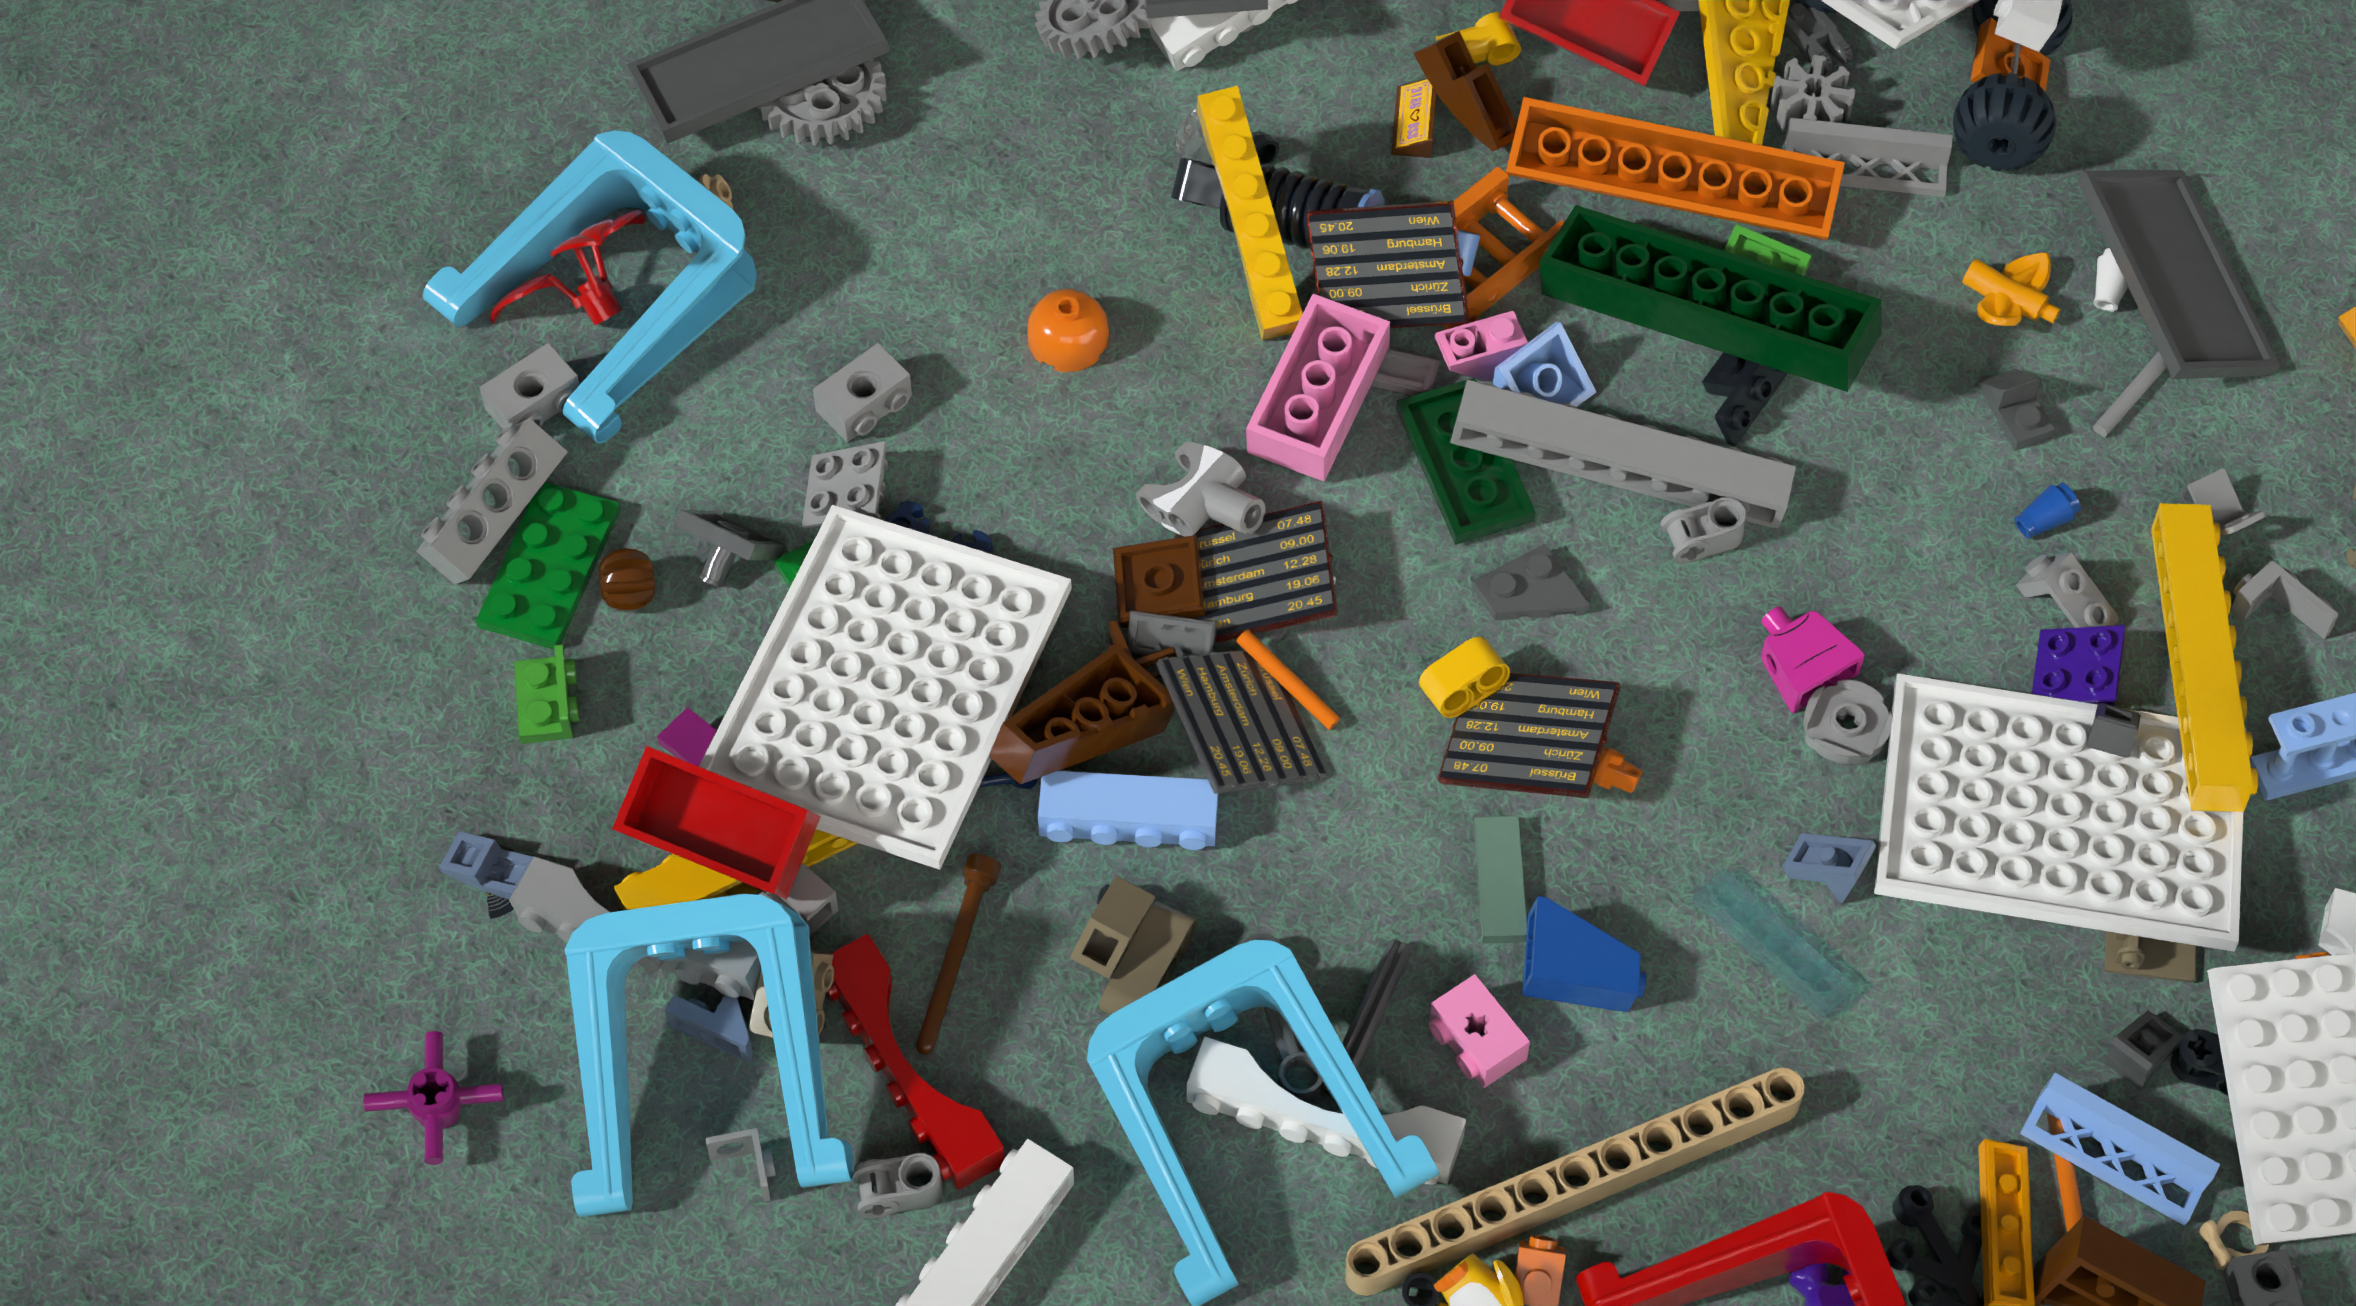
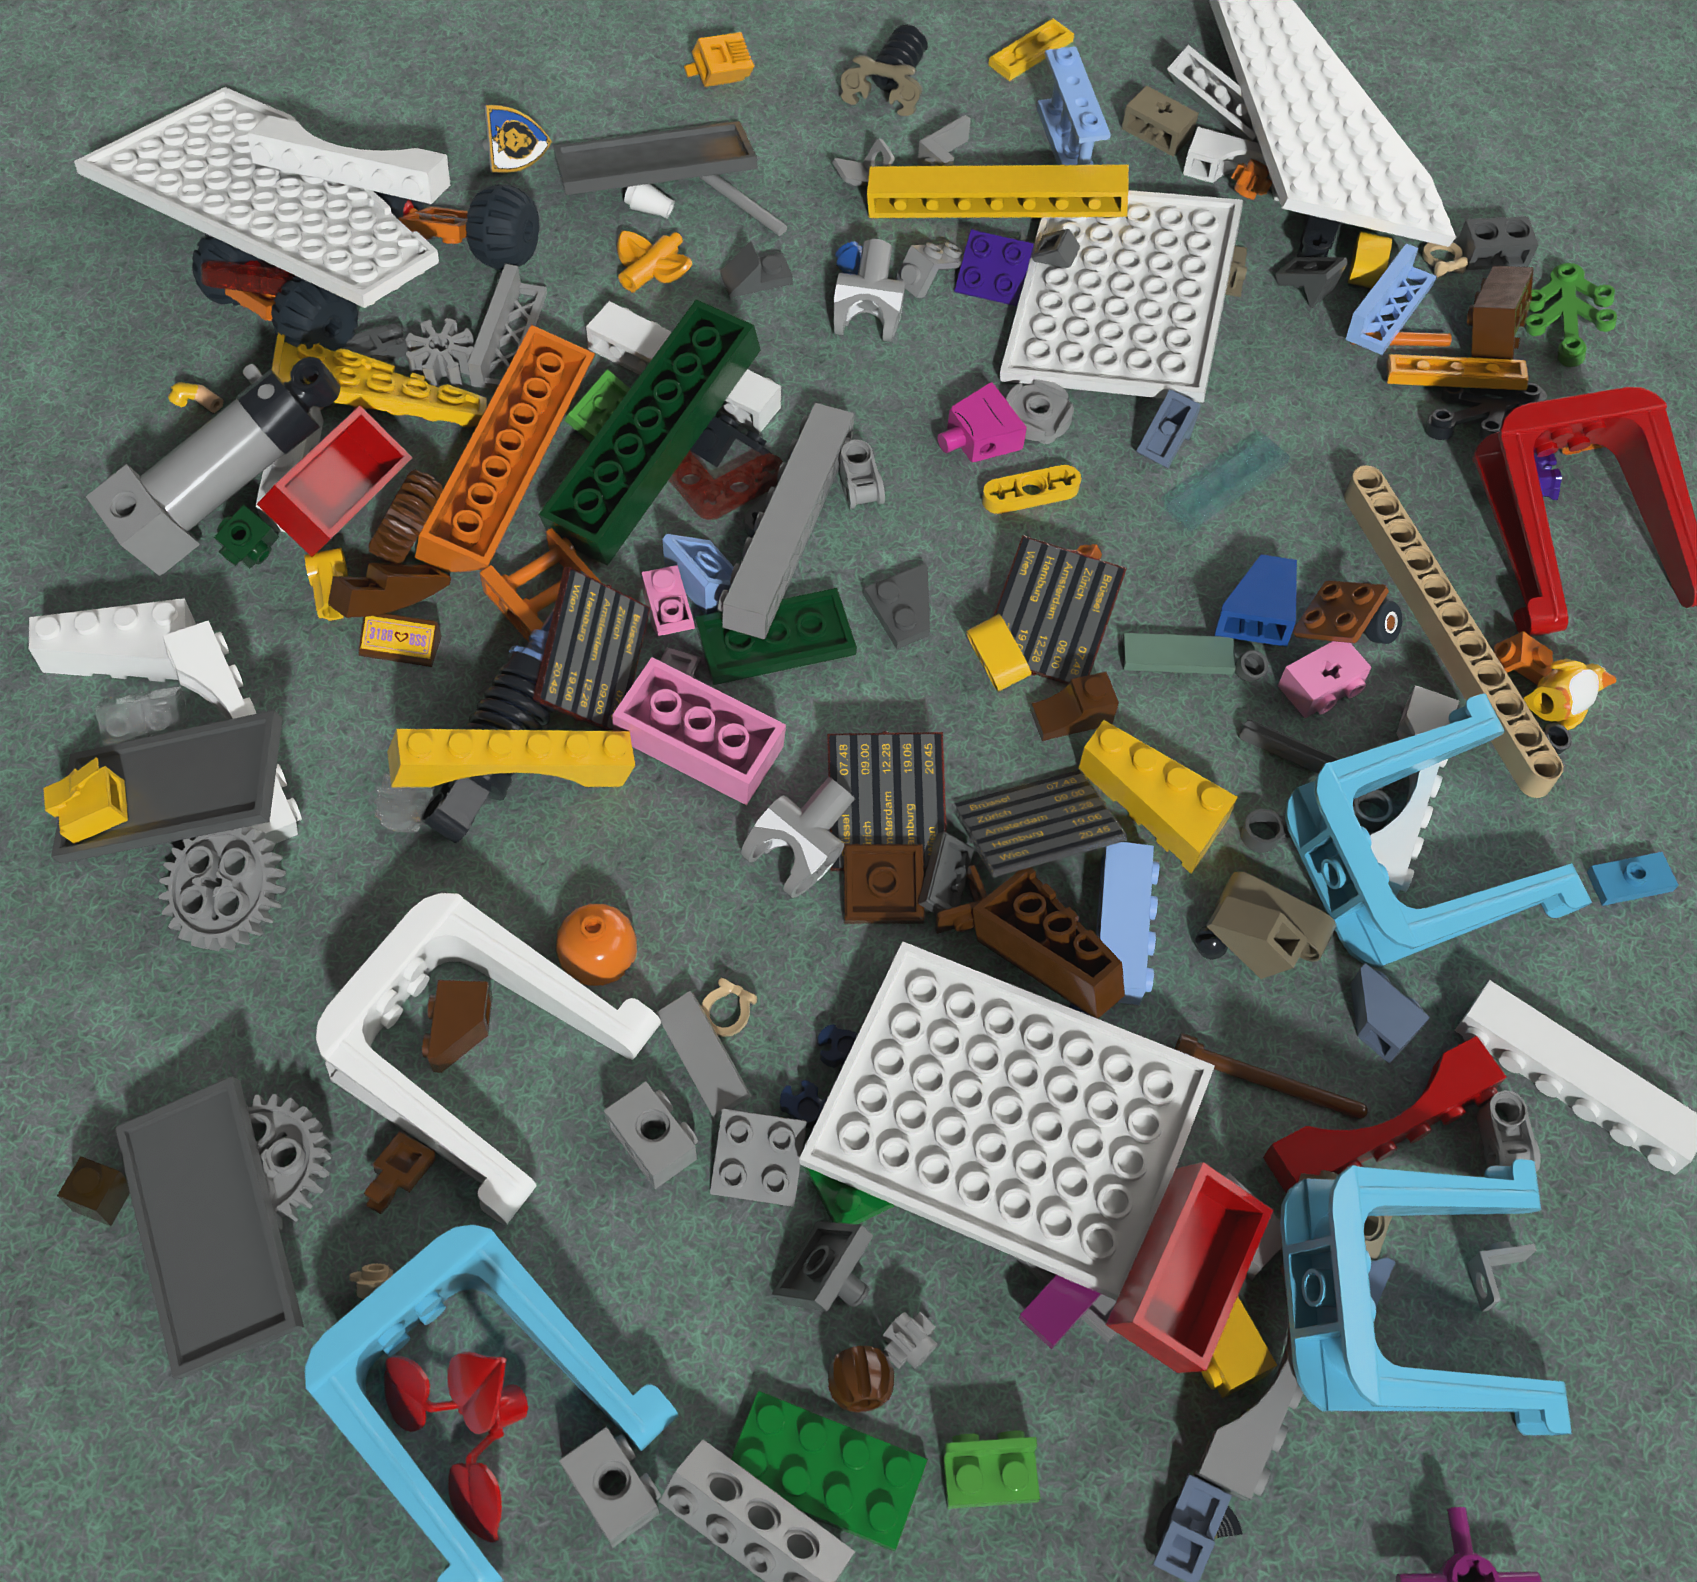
camera: 90 degrees left, 0 degrees up
(664, 619) = (909, 1340): none -> light grey gear
(822, 199) = (398, 1166): none -> reddish brown plate
(945, 130) = (431, 934): none -> white piece
(953, 432) = (703, 1054): none -> light grey tile
(971, 222) = (459, 1021): none -> reddish brown slope
(1017, 466) = (726, 988): none -> tan piece
(1032, 1066) = (1383, 1014): none -> sand blue slope
(1288, 679) = (991, 787): orange bar -> none
(1289, 845) = (1158, 792): none -> yellow wedge
(1403, 765) = (1076, 707): none -> reddish brown arch
(1479, 946) = (1252, 662): none -> dark grey hinge
(1553, 82) = (405, 517): none -> reddish brown gear
(1582, 1053) = (1347, 609): none -> dark orange plate
(1669, 390) = (711, 489): none -> clear red beam
(1724, 700) = (1041, 478): none -> yellow beam
(1876, 269) = (635, 341): none -> white brick
(1993, 522) = (870, 291): none -> light grey connector
(2169, 122) = (512, 139): none -> shield
(2199, 1126) = (1369, 259): none -> yellow beam

